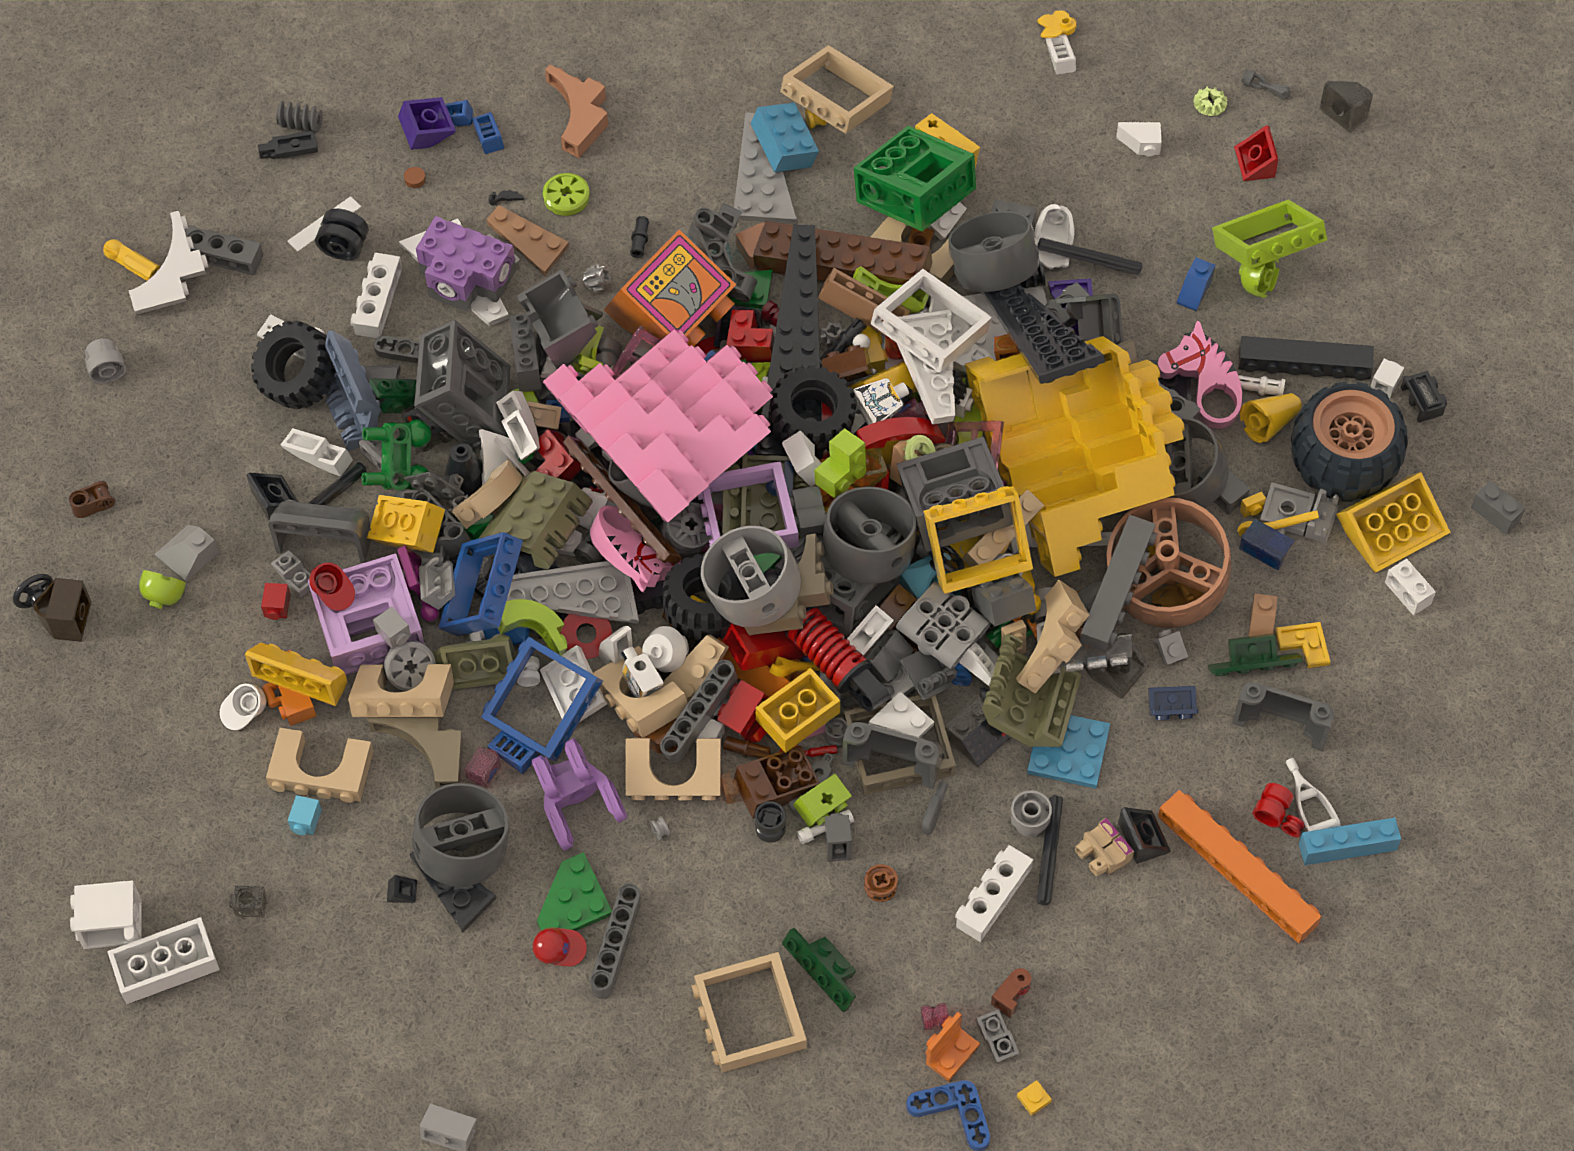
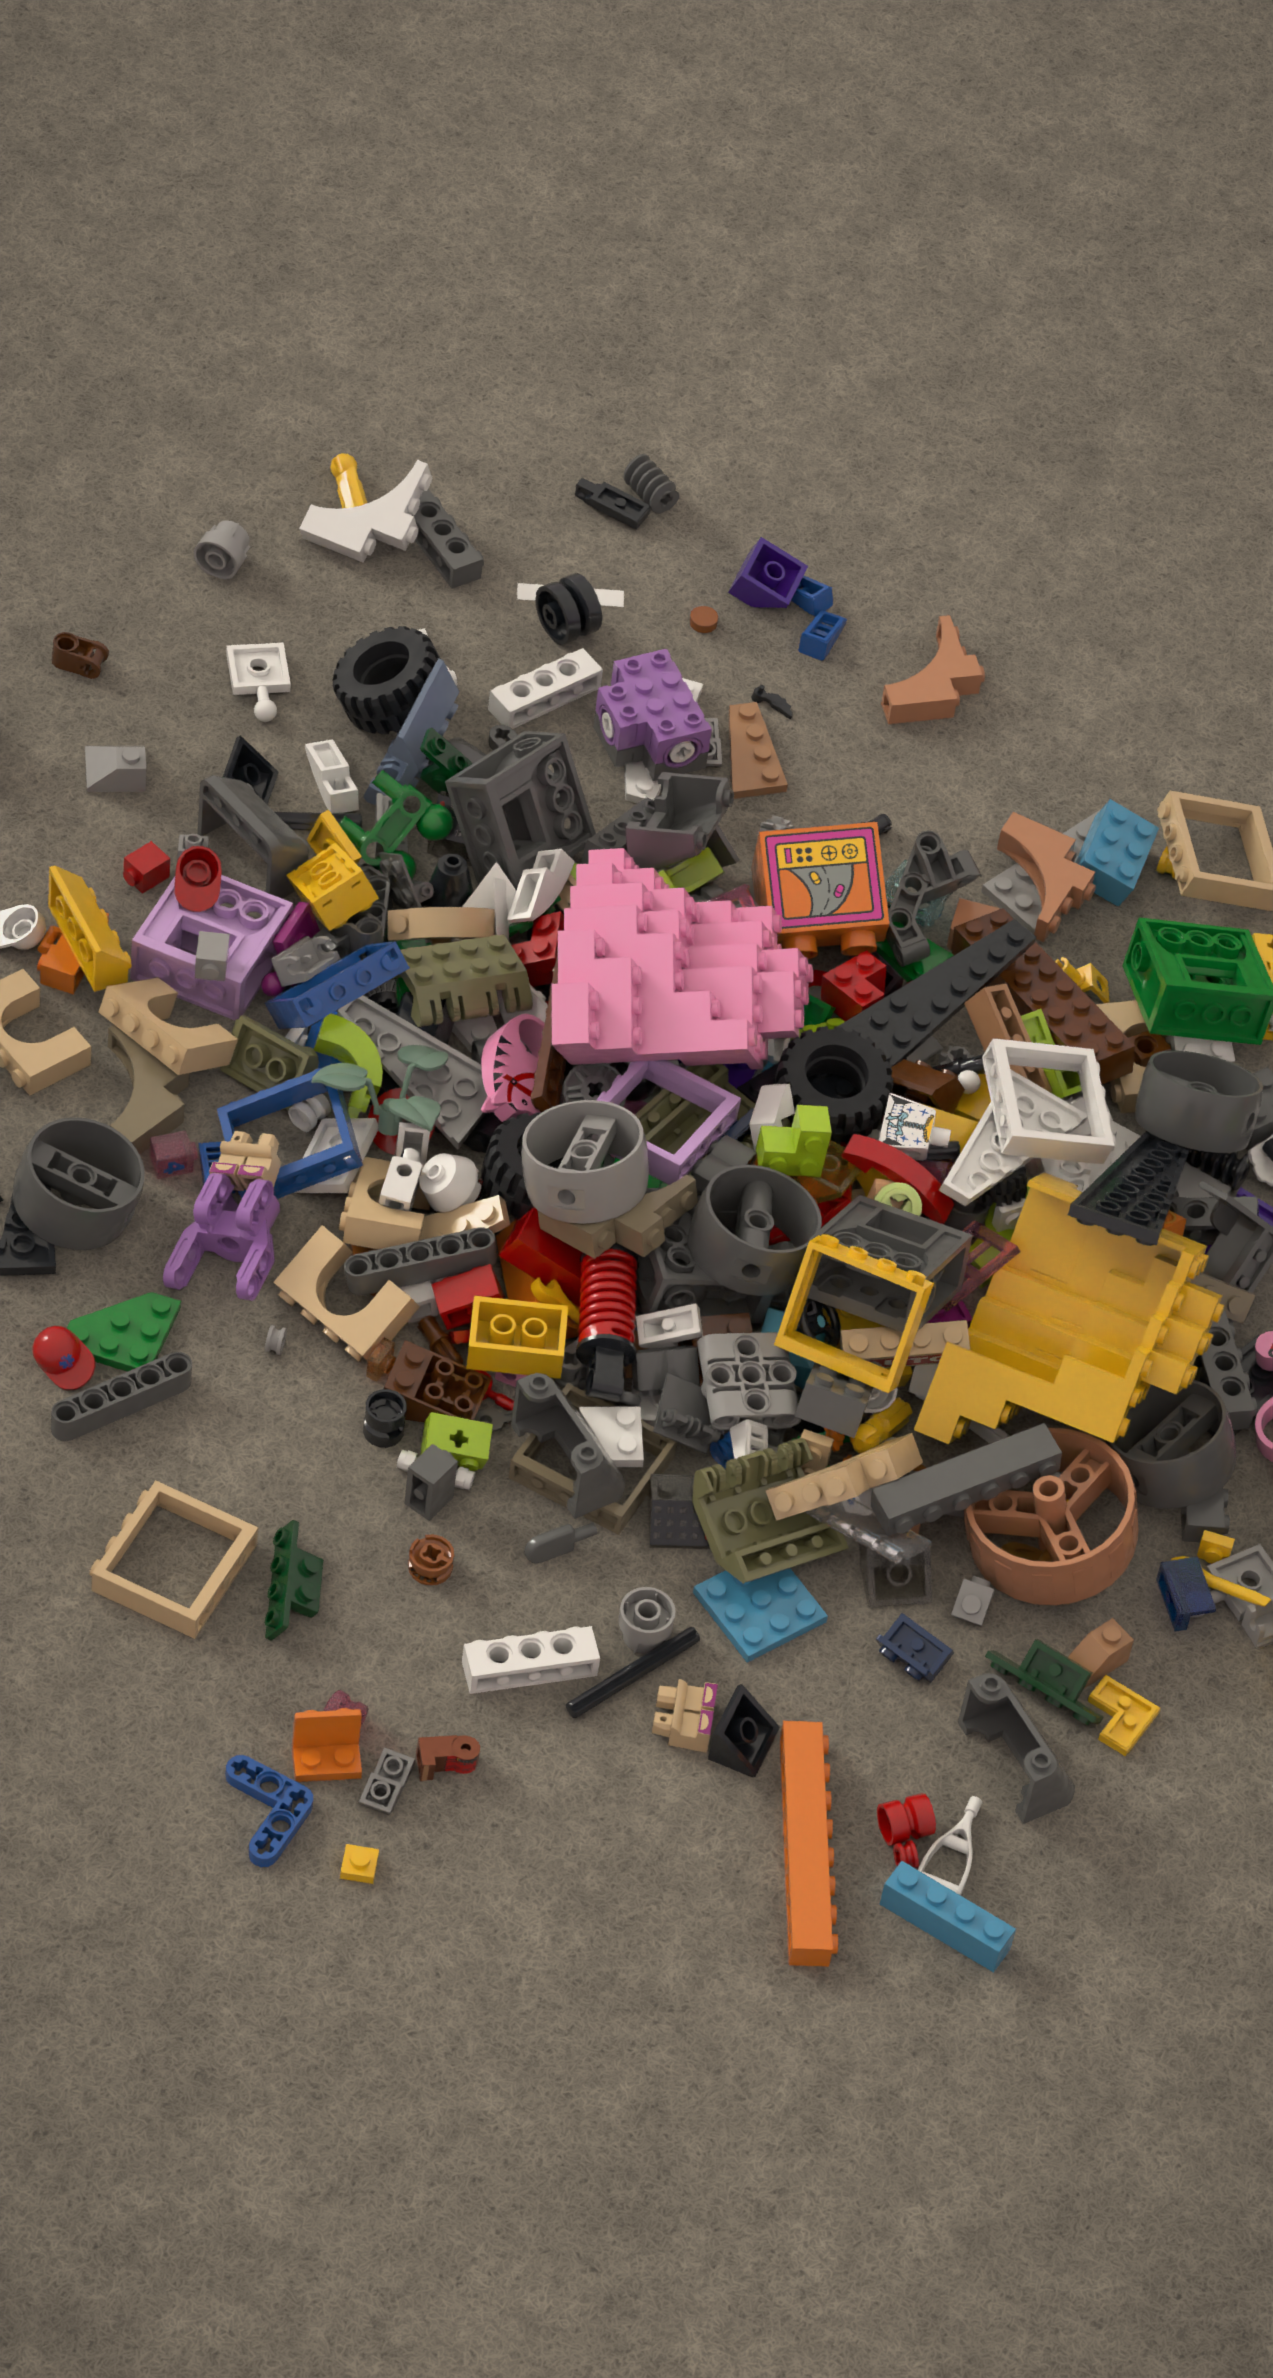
camera: 35 degrees right, 10 degrees down
(160, 589) = (52, 774): lime cylinder -> none
(206, 432) = (249, 681): none -> white plate
(365, 493) = (327, 832): none -> yellow tile
(398, 657) = (197, 995): light grey wheel -> none
(542, 738) = (248, 1161): none -> tan hips
(571, 203) = (840, 731): lime wheel -> none
(610, 623) = (415, 1109): none -> sand green plant
(756, 171) = (1050, 864): none -> nougat arch
(847, 225) = (1086, 978): none -> yellow bracket

